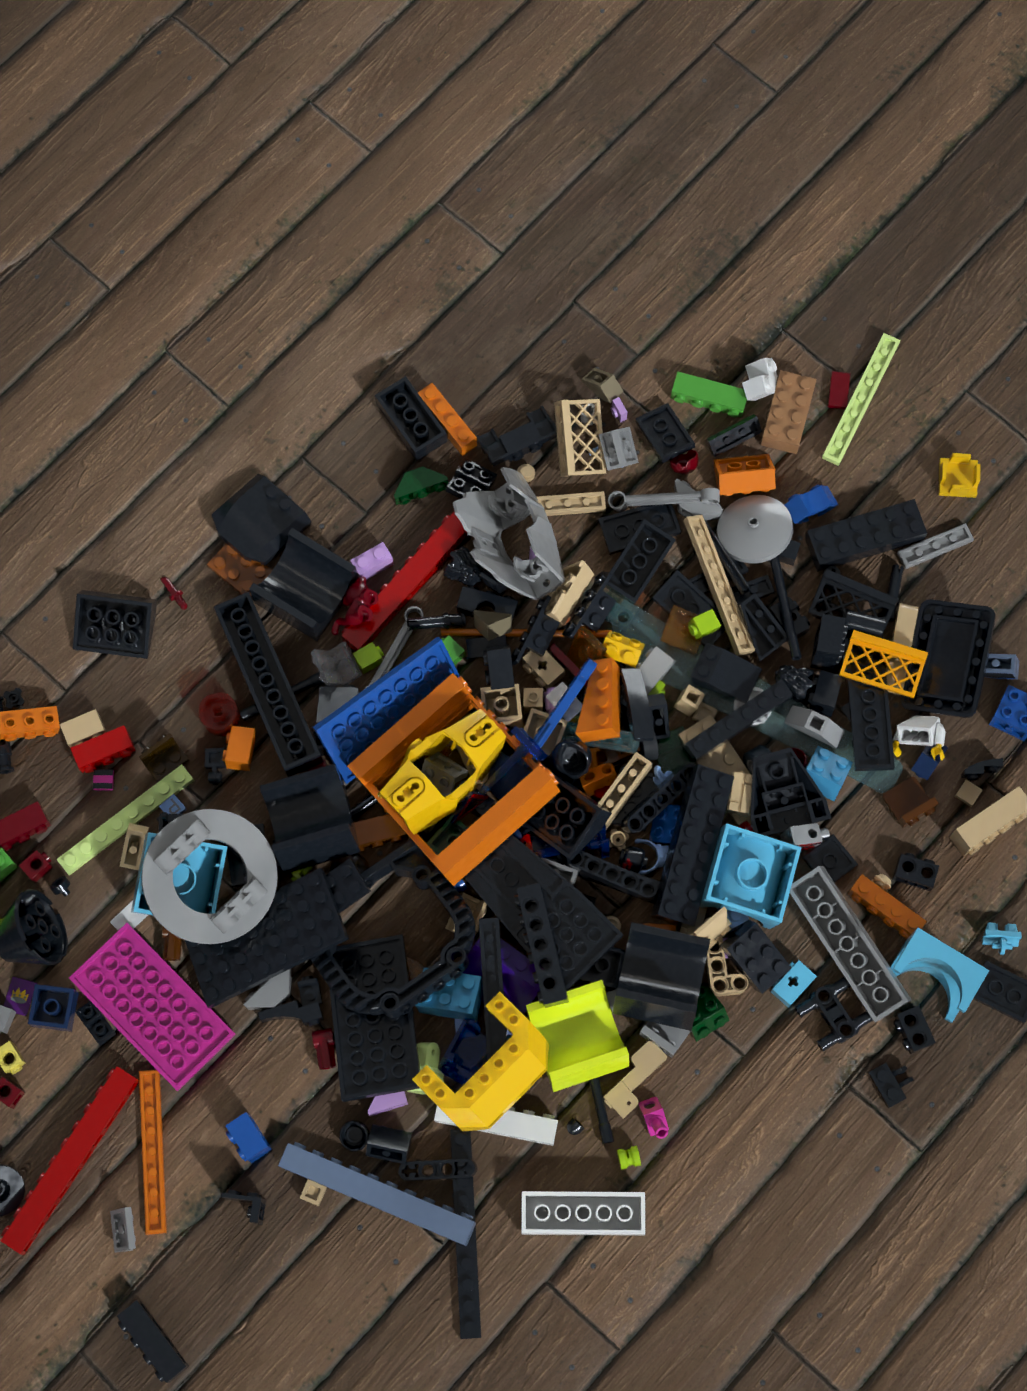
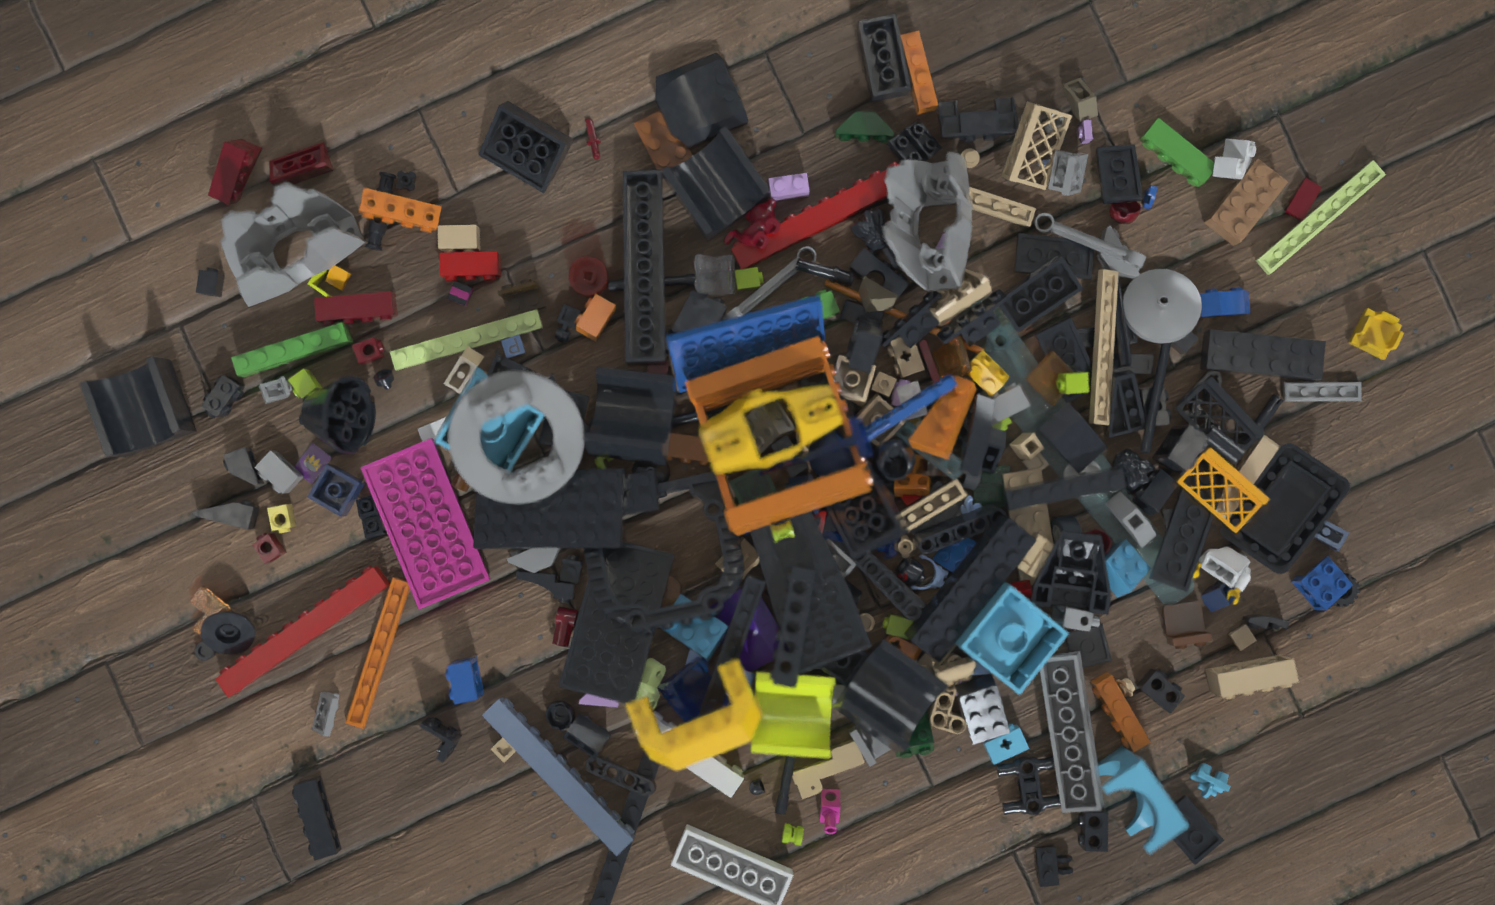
camera: 15 degrees right, 15 degrees up
(494, 862) = (782, 530): none -> lime bush
(641, 913) = (896, 625): none -> lime brick
(701, 441) = (1149, 197): none -> blue tile
(734, 435) = (1183, 203): black plate -> none
(744, 474) = (1176, 246): orange slope -> none

